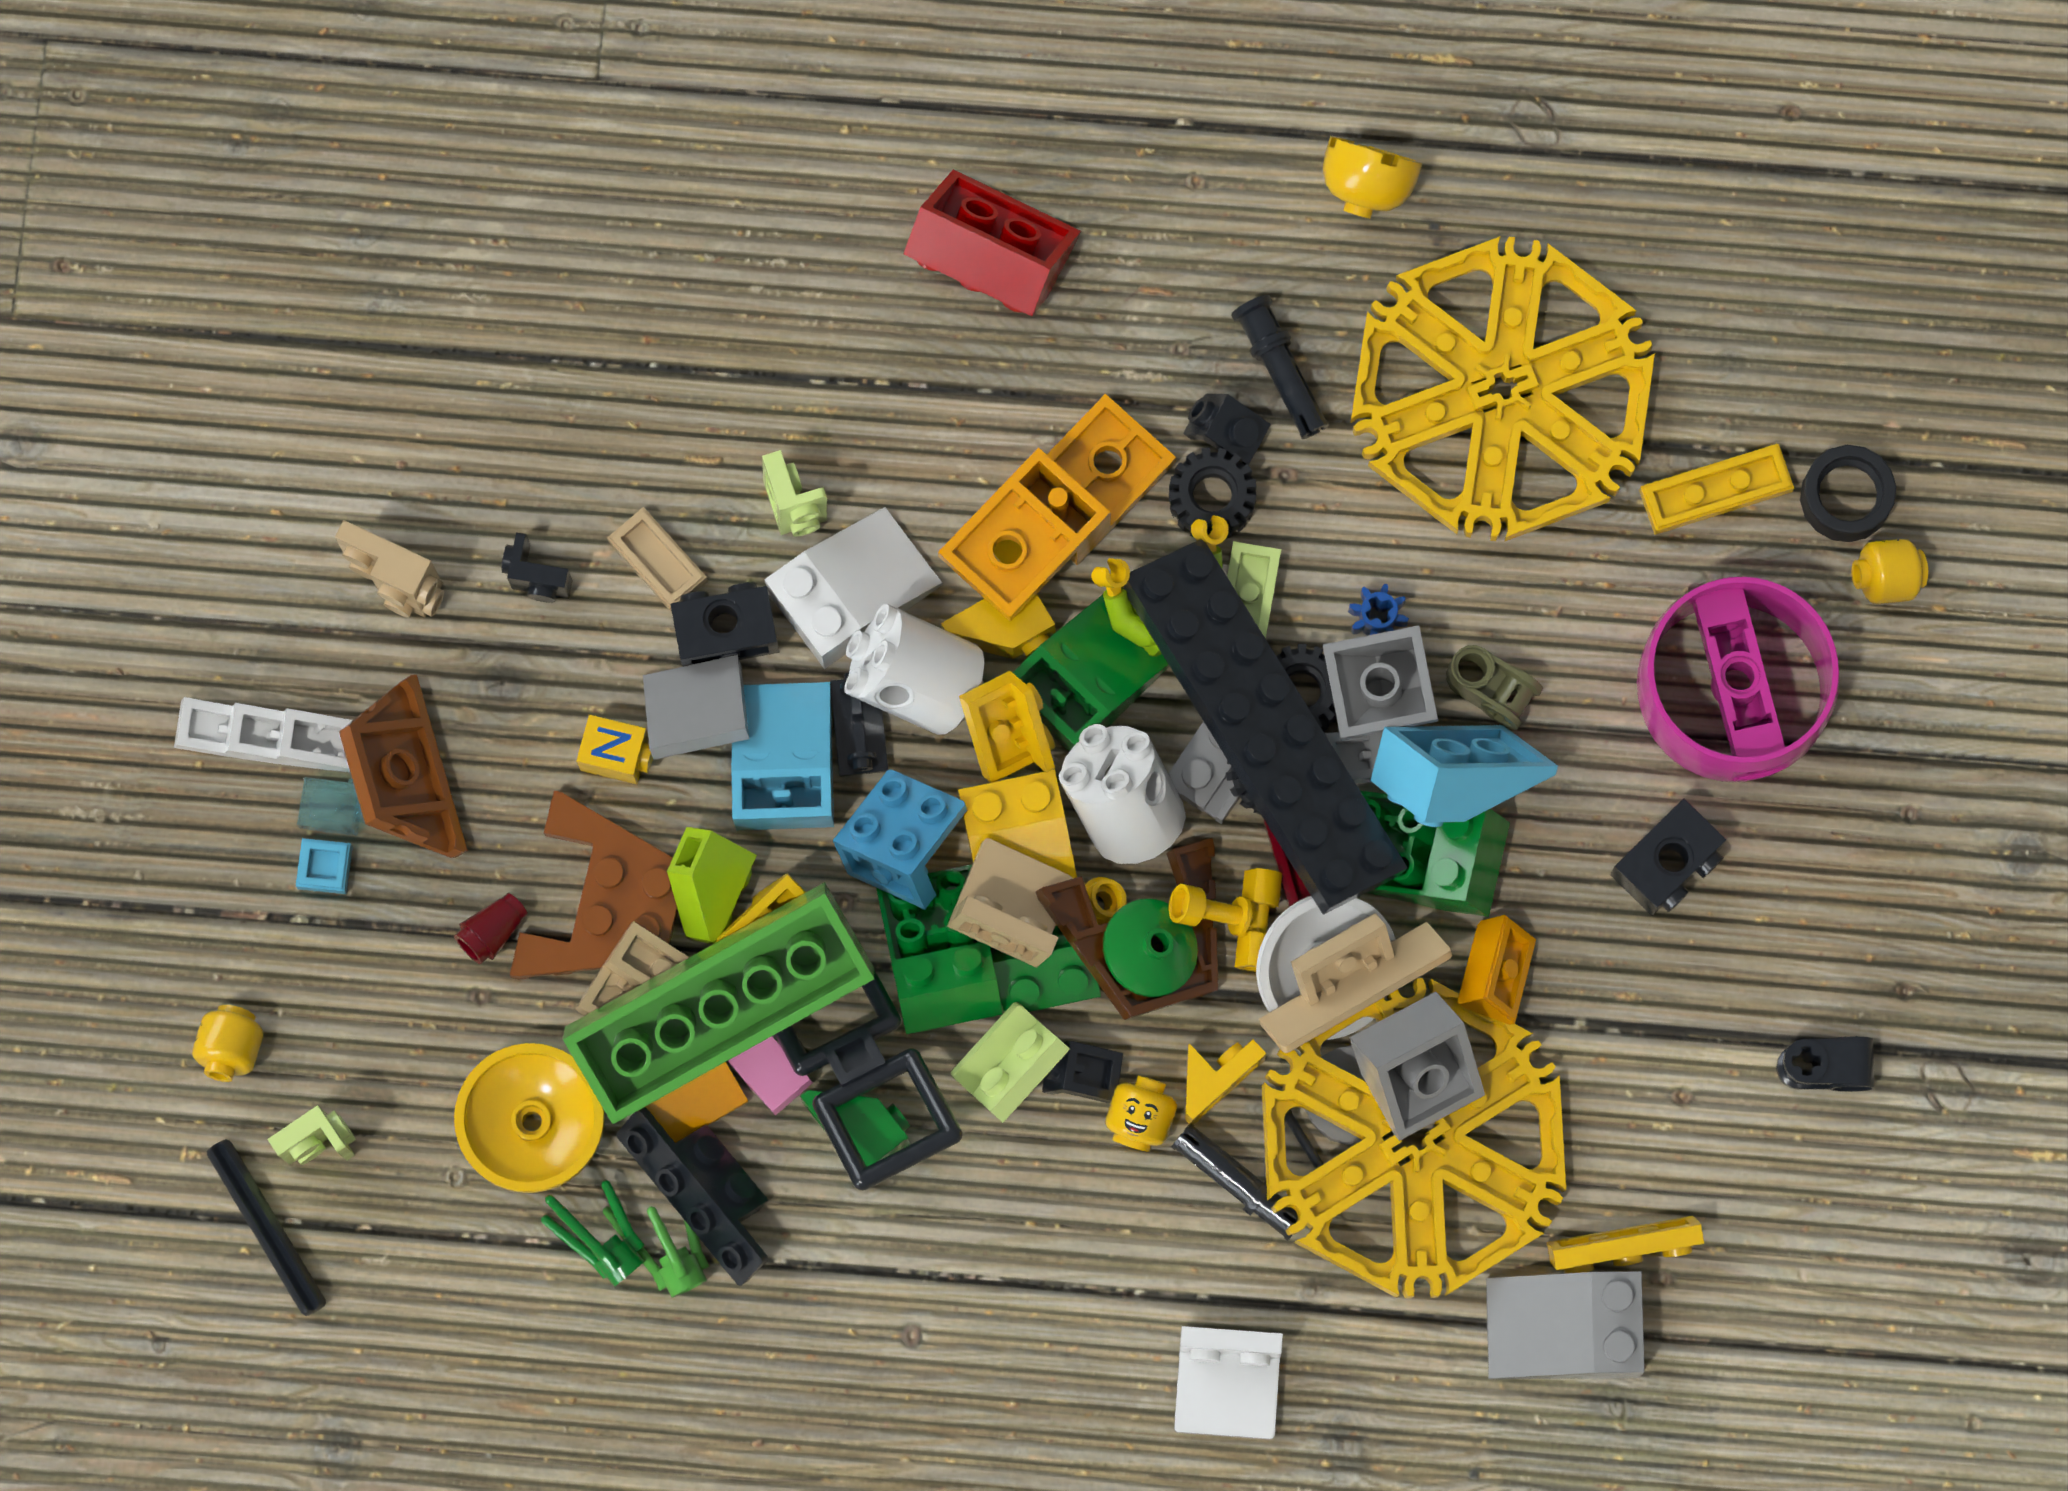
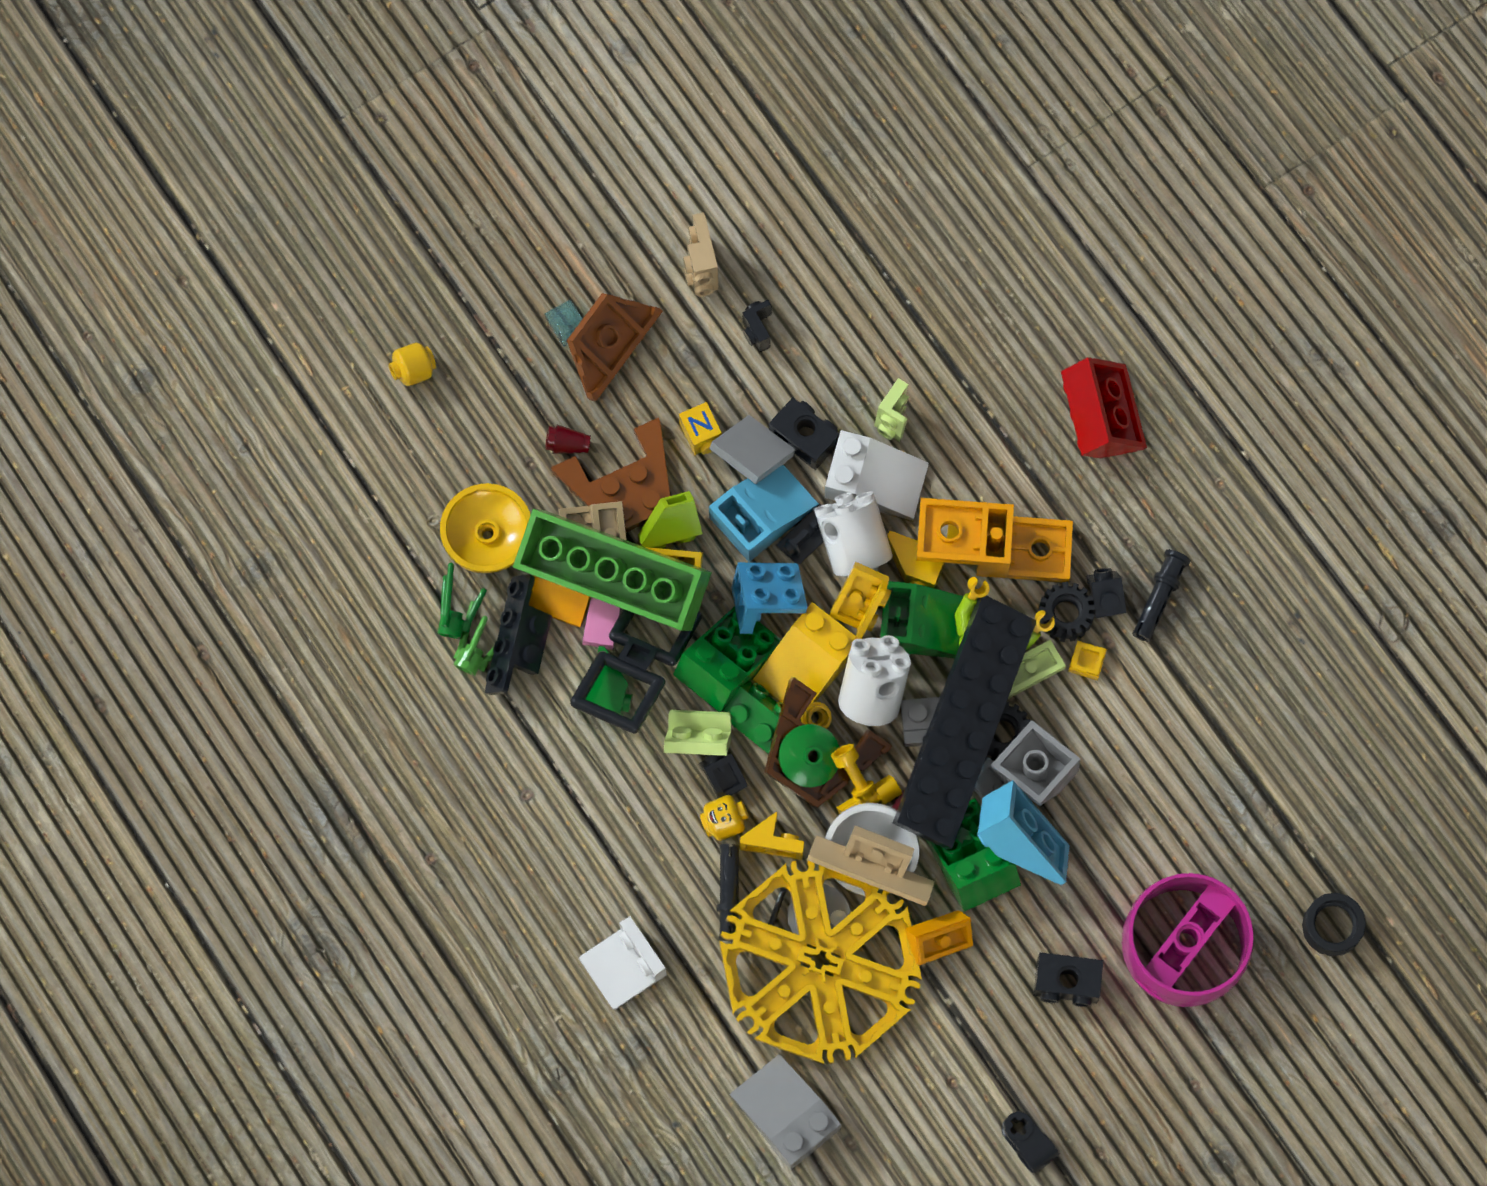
camera: 50 degrees right, 5 degrees down
(262, 734) = (573, 261): white slope -> none
(266, 1227) = (338, 452): black axle -> none
(305, 1135) = (397, 435): yellowish green bracket -> none
(324, 866) = (535, 342): medium azure tile -> none
(656, 558) = (813, 376): tan tile -> none
(1002, 903) = (771, 665): tan bracket -> none
(1291, 518) = (1087, 660): none -> yellow tile
(1368, 176) = (1291, 560): yellow cylinder -> none
(1381, 602) = (1080, 741): blue gear -> none
(1418, 1065) = (855, 931): light grey slope -> none
(1495, 687) = (1084, 828): olive piece -> none
(1507, 345) = (1261, 700): yellow plate -> none
(1626, 1244) = (851, 1109): yellow plate -> none
(1716, 489) = (1280, 857): yellow tile -> none
(1890, 571) = (1311, 976): yellow head -> none

